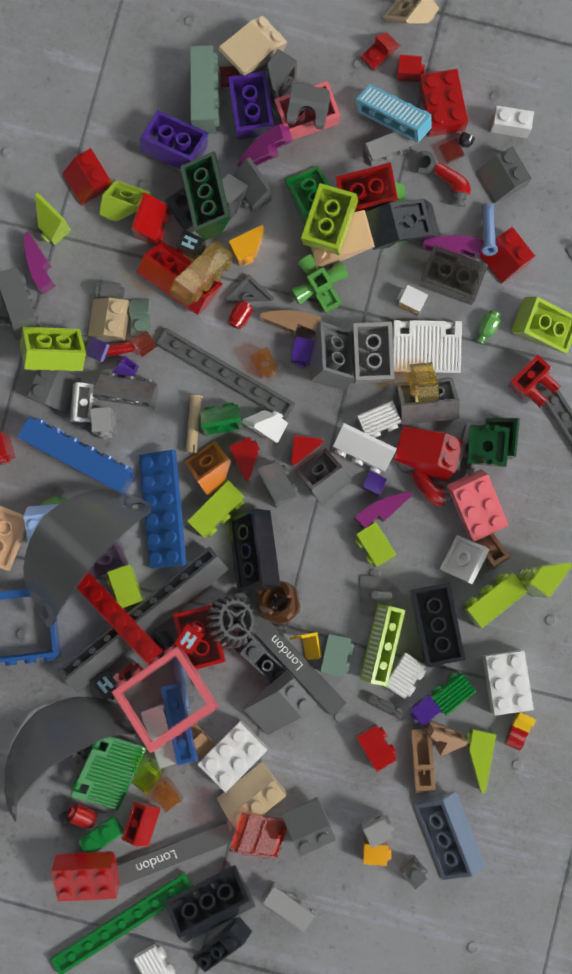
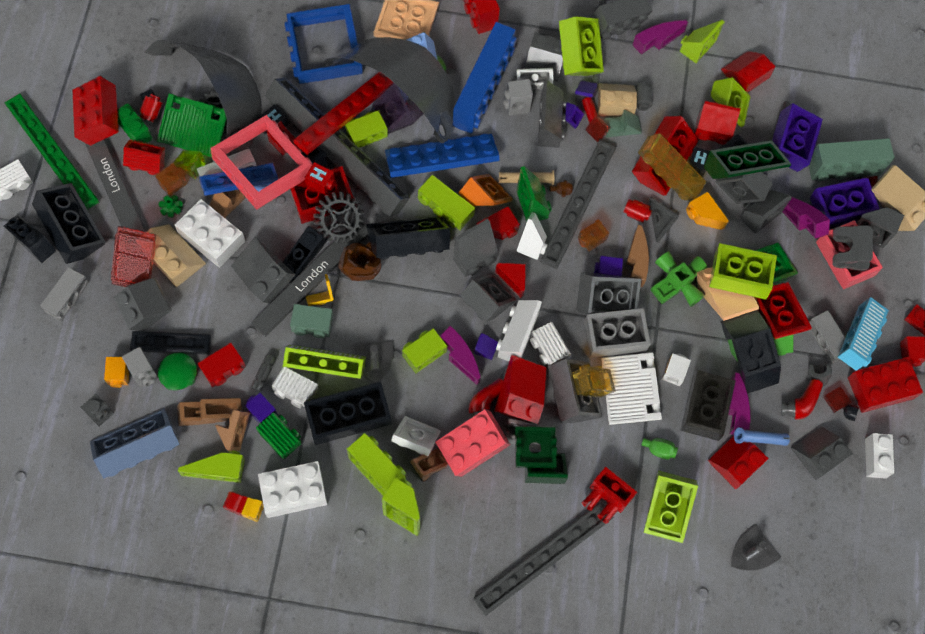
camera: 75 degrees right, 15 degrees down
(198, 793) = (170, 206): none -> green plant
(208, 387) = (562, 188): none -> reddish brown piece
(346, 798) = (171, 342): none -> black tile
(377, 792) = (177, 371): none -> green dish

